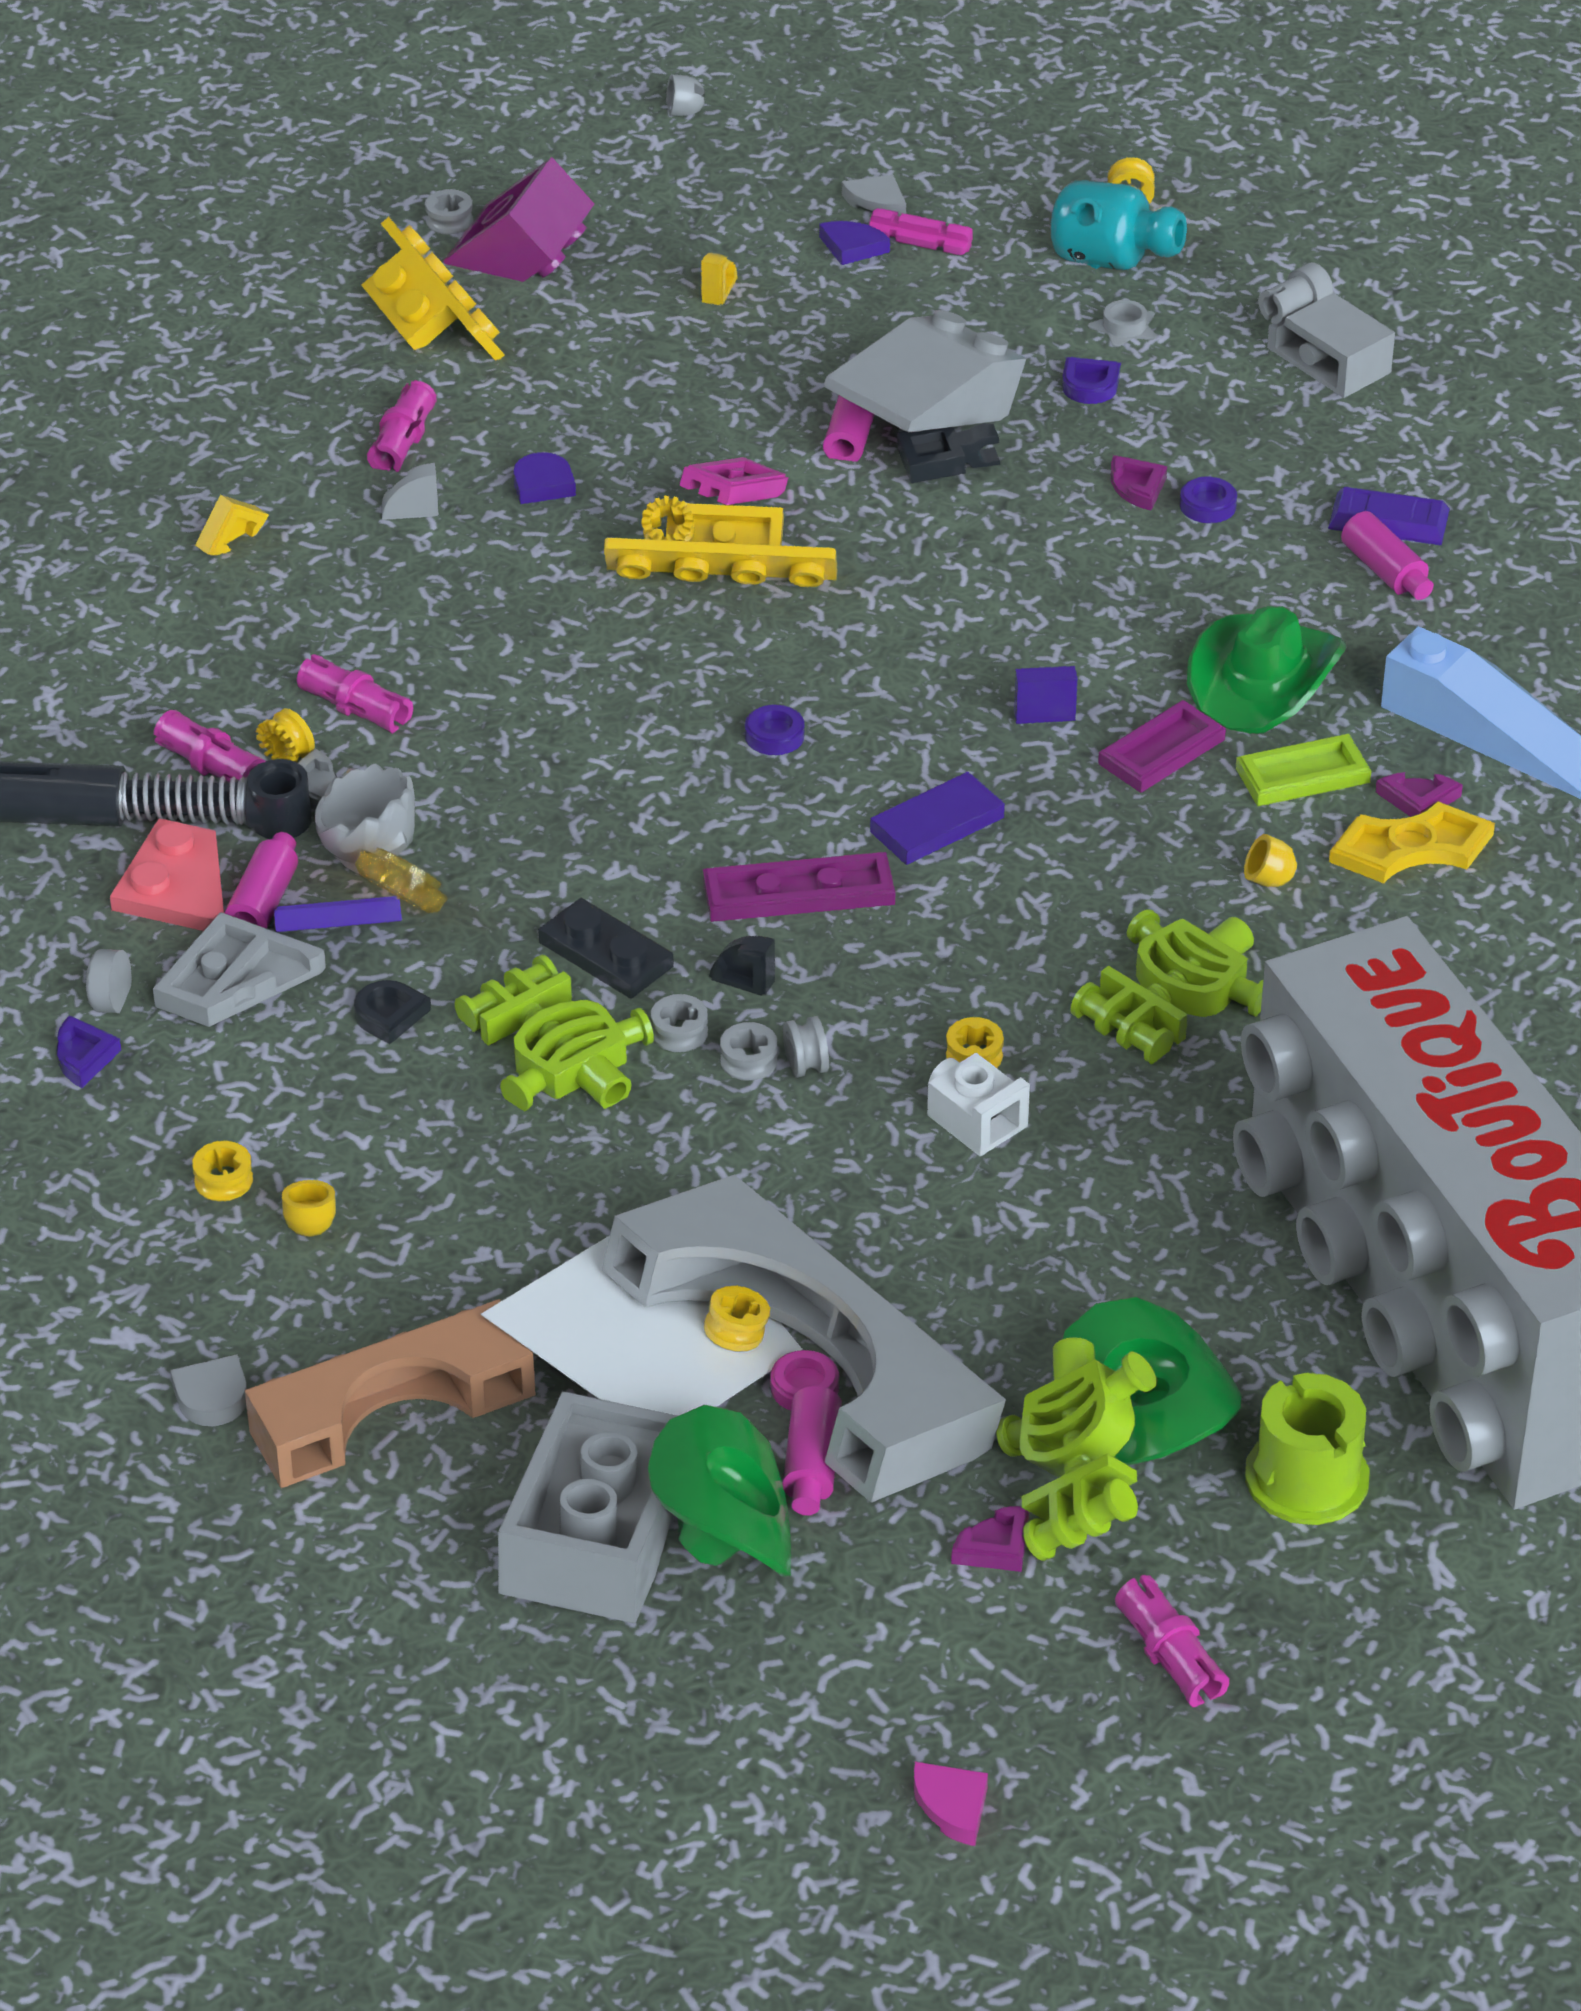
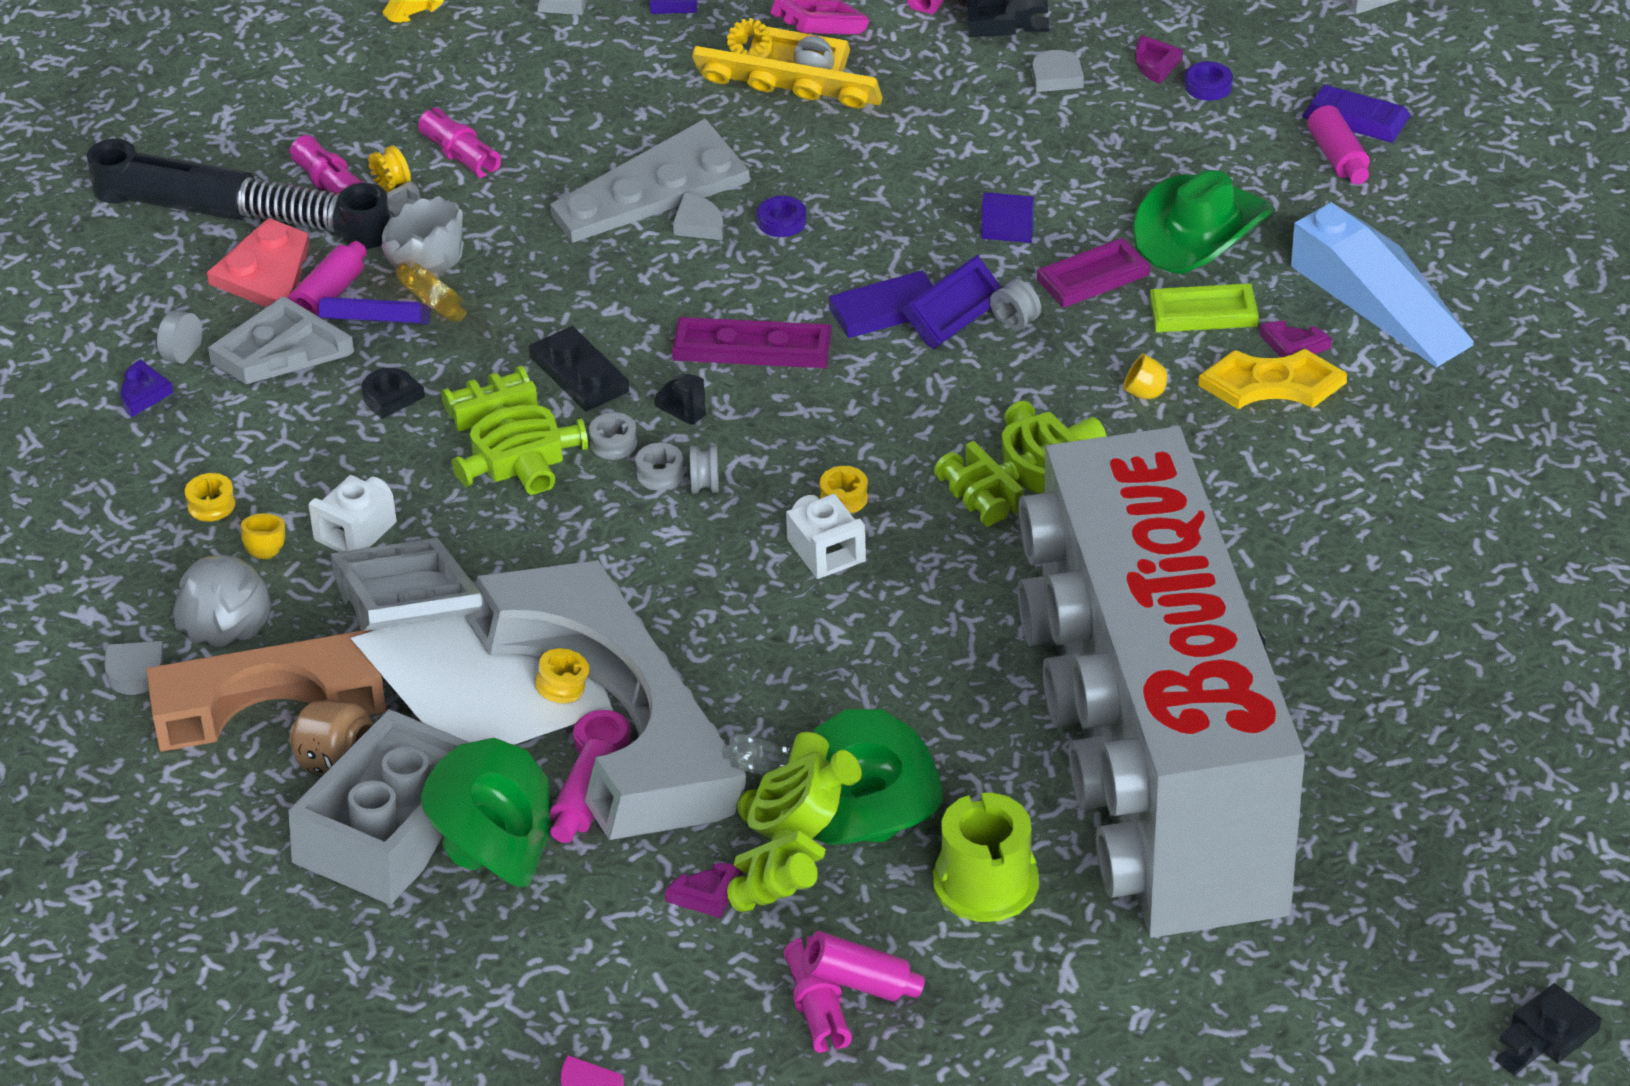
camera: 15 degrees right, 0 degrees up
(290, 1295) = (221, 601): none -> light grey hair
(414, 1153) = (359, 507): none -> white brick
(492, 1436) = (326, 733): none -> medium nougat head
(514, 1239) = (404, 584): none -> light grey slope
(609, 707) = (652, 183): none -> light grey wing
(679, 746) = (698, 218): none -> light grey tile
(749, 534) = (806, 57): none -> light grey hinge
(1014, 1374) = (755, 754): none -> clear axle
(1020, 804) = (952, 302): none -> dark purple tile
(1030, 511) = (1057, 71): none -> light grey tile
(1100, 786) = (1015, 304): none -> light grey bush
(1216, 1600) = (860, 967): none -> dark pink cylinder

